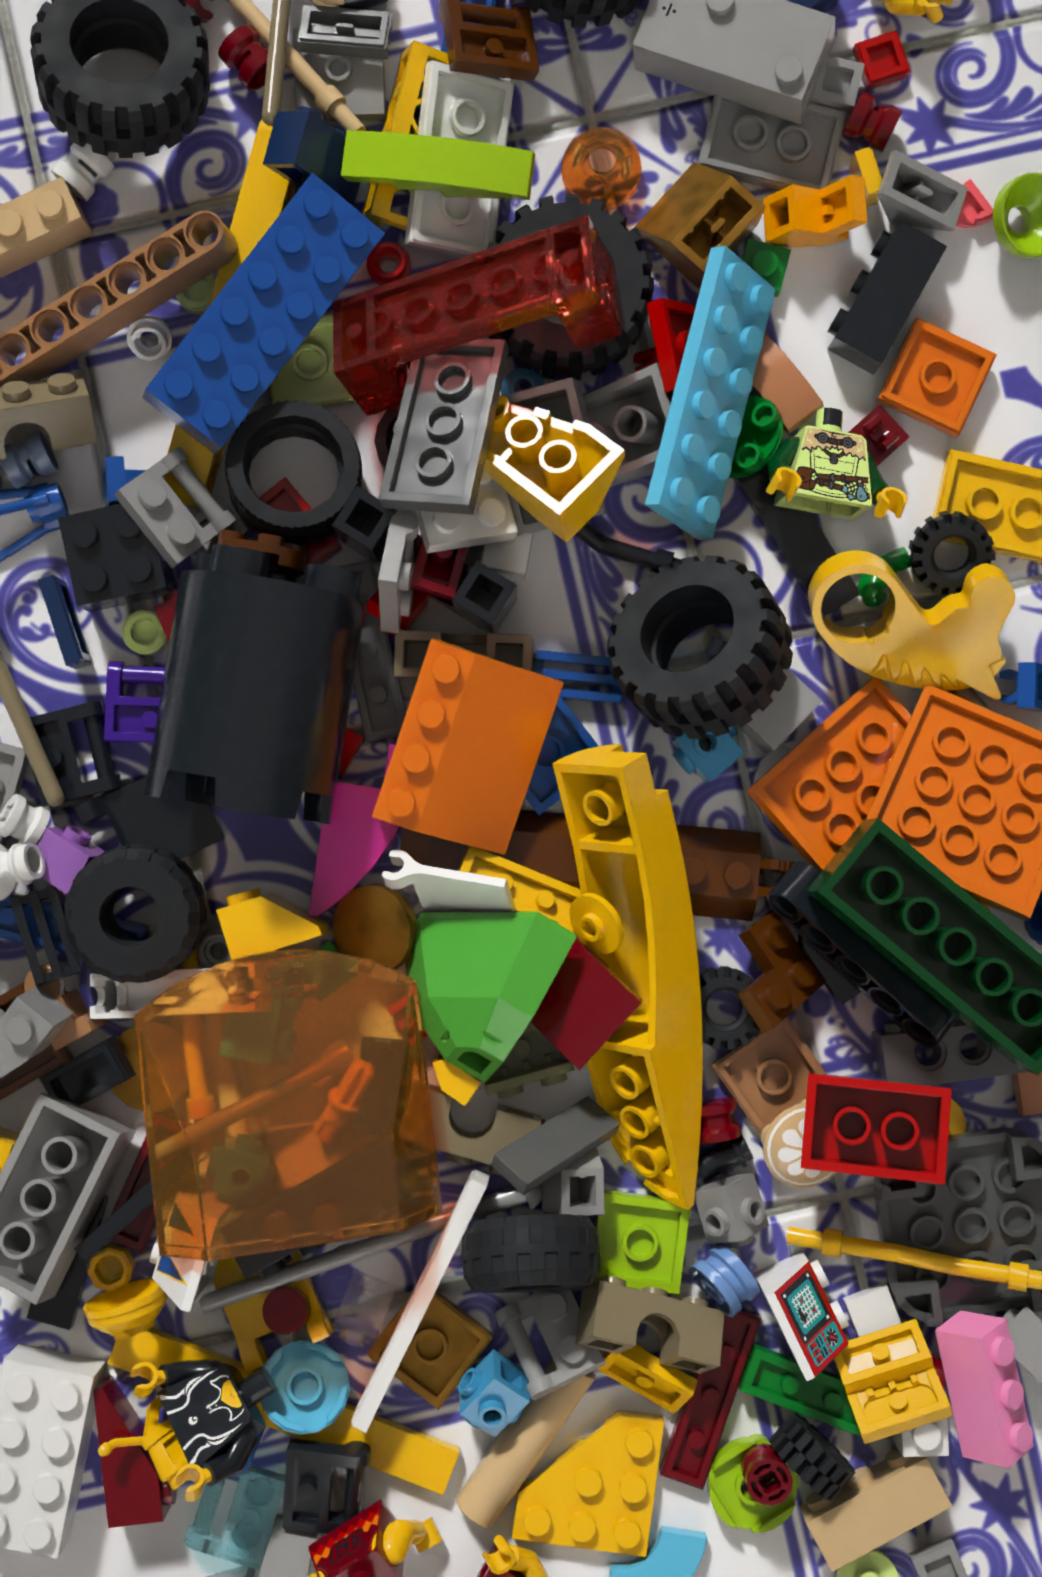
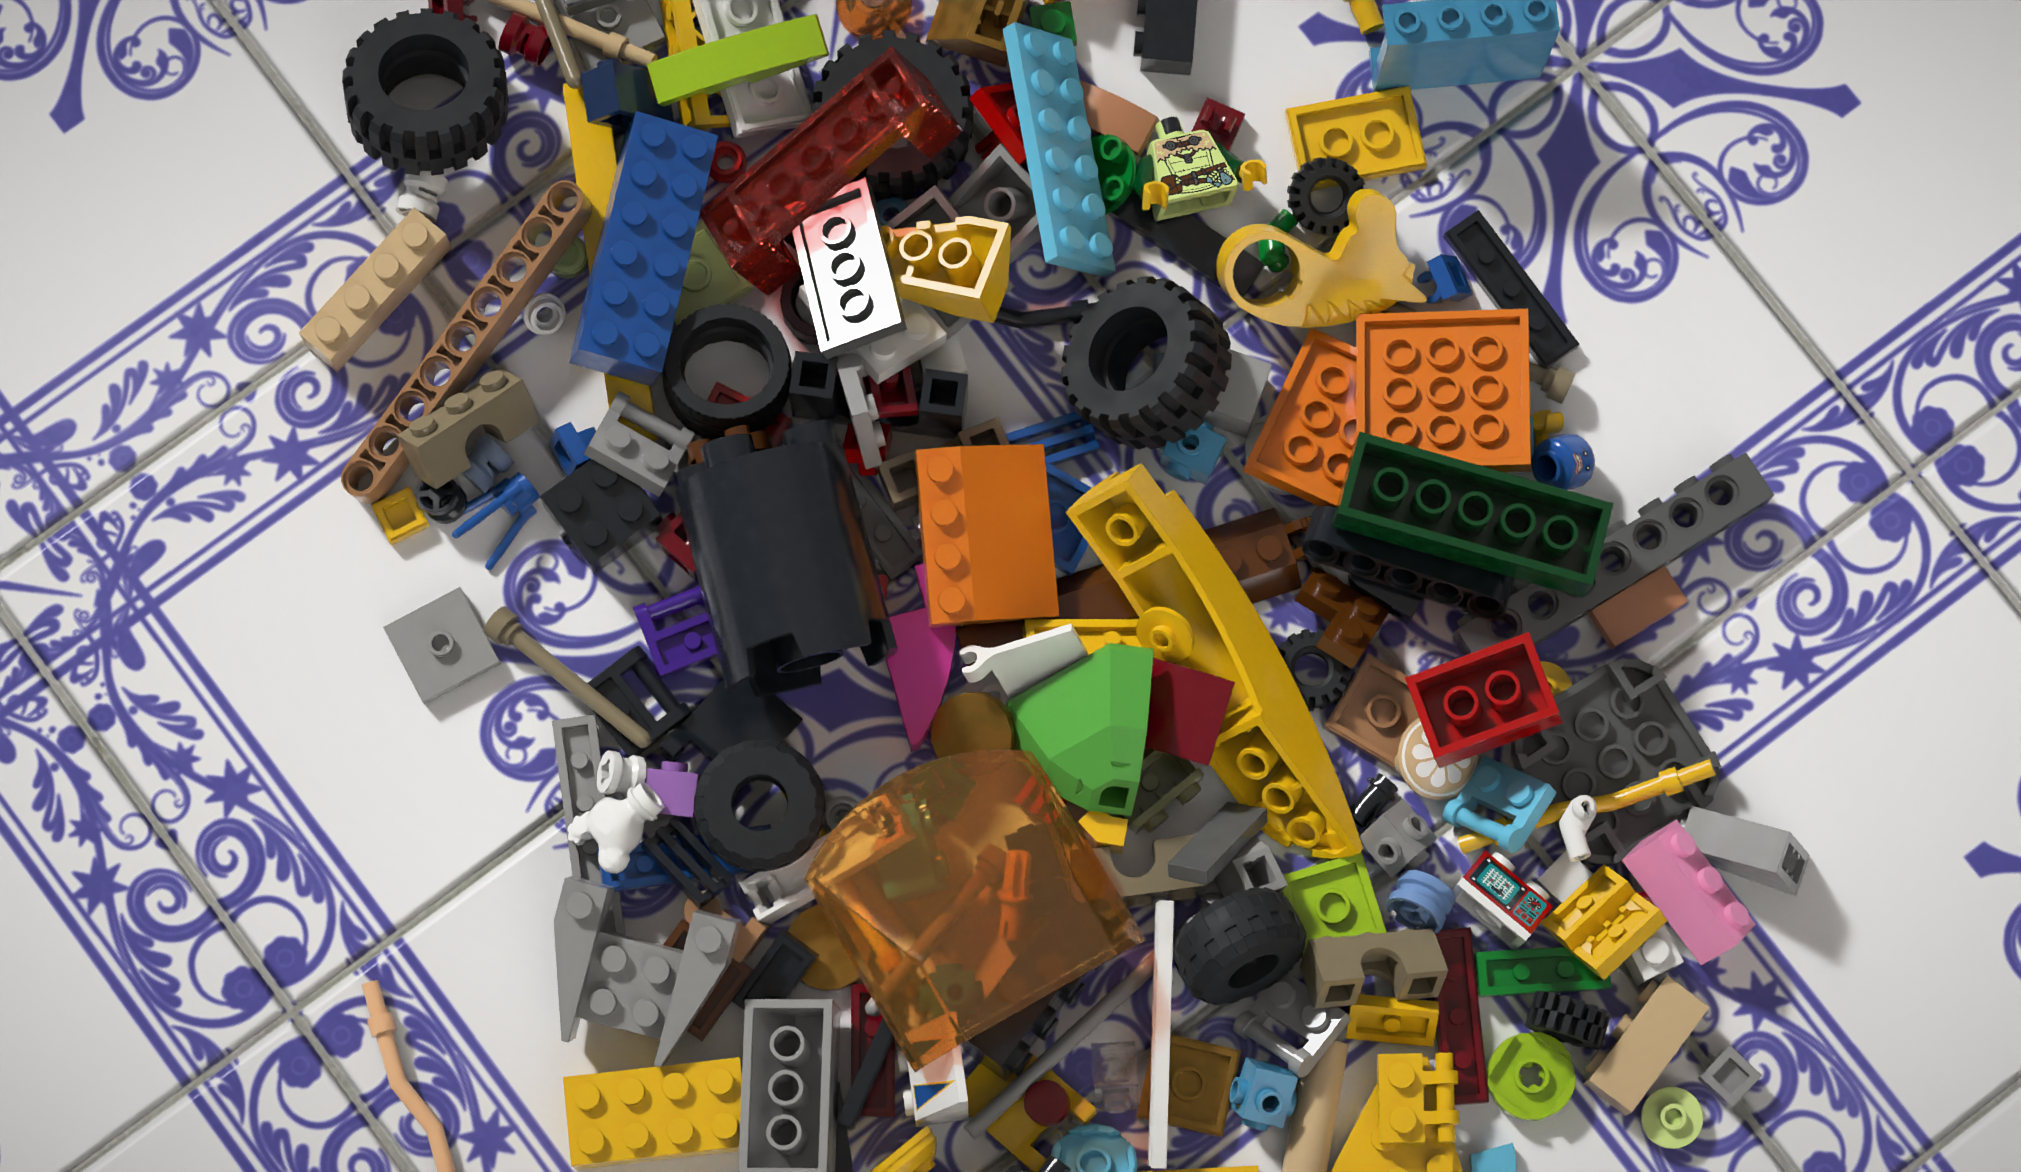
camera: 25 degrees left, 10 degrees down
(65, 622) = (579, 589): dark blue tile -> none
(111, 1267) = (872, 1140): yellow tile -> none
(144, 633) = (652, 570): yellowish green tile -> none
(265, 923) = (876, 760): yellow slope -> none
(620, 1460) = (1402, 1098): none -> yellow plate
(719, 1121) = (1352, 768): dark red wheel -> none
(762, 1465) = (1527, 1053): dark red wheel -> none
(857, 1215) = (1505, 792): none -> medium azure plate
(906, 1277) = (1575, 824): none -> white arm
(936, 377) = (1245, 54): orange plate -> none

